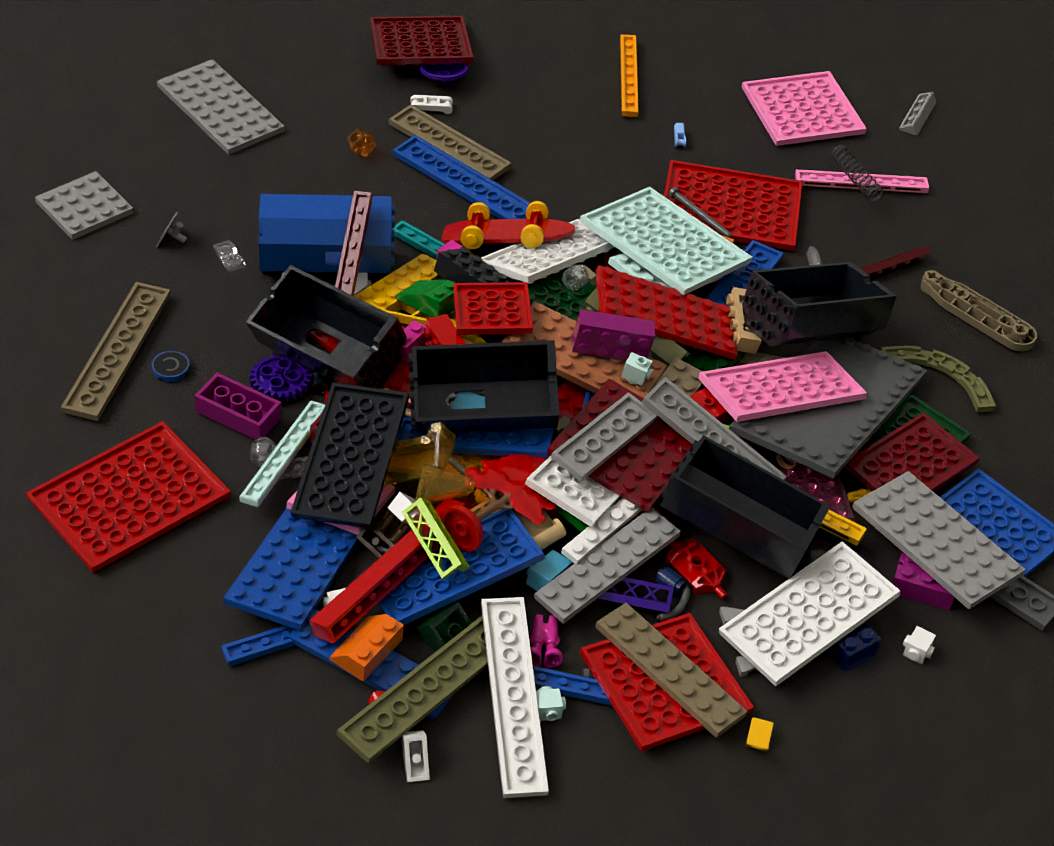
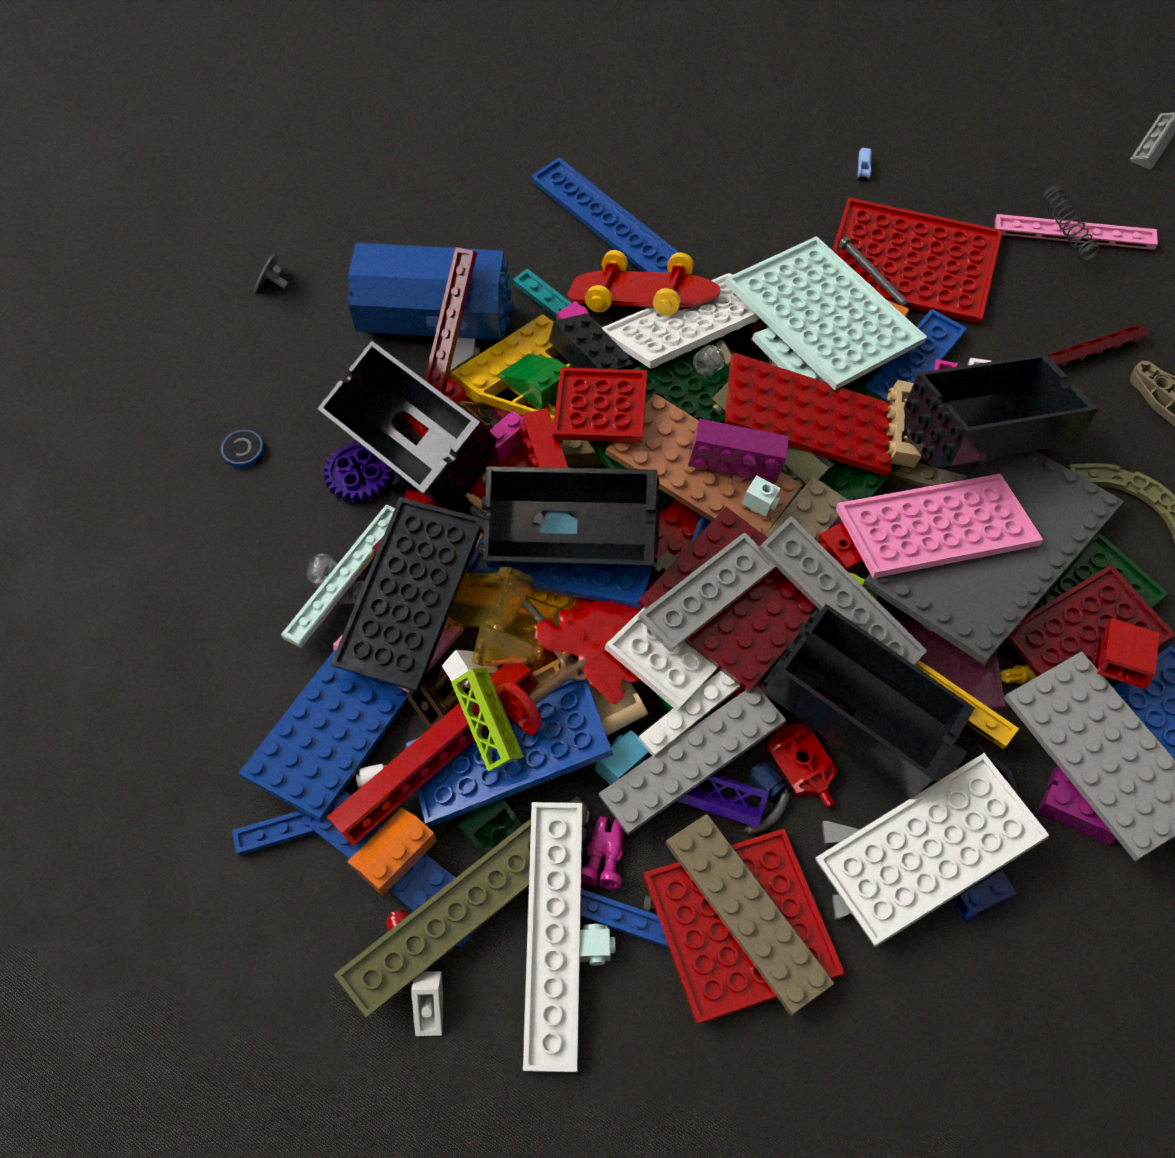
camera: 15 degrees right, 15 degrees up
(84, 205) = (186, 237): light grey plate -> none
(115, 351) = (185, 428): dark tan plate -> none
(127, 496) = (165, 619): red plate -> none
(220, 106) = (353, 115): light grey plate -> none
(228, 255) = (330, 307): clear slope -> none
(238, 406) = (303, 509): magenta brick -> none
(361, 142) = (497, 165): clear orange brick -> none
(416, 122) = (598, 167): dark tan plate -> none
(420, 40) = (583, 35): dark red plate -> none
(432, 103) = (584, 116): white plate -> none
(444, 73) = (603, 72): dark purple dish -> none
(629, 83) = (815, 84): light orange plate -> none
(759, 734) = (845, 1015): yellow bracket -> none
(803, 108) = (1017, 130): bright pink plate -> none
(813, 256) = (1003, 340): clear cylinder -> none
(919, 645) = (1064, 898): white brick -> none
(944, 468) = (1128, 653): none -> red brick

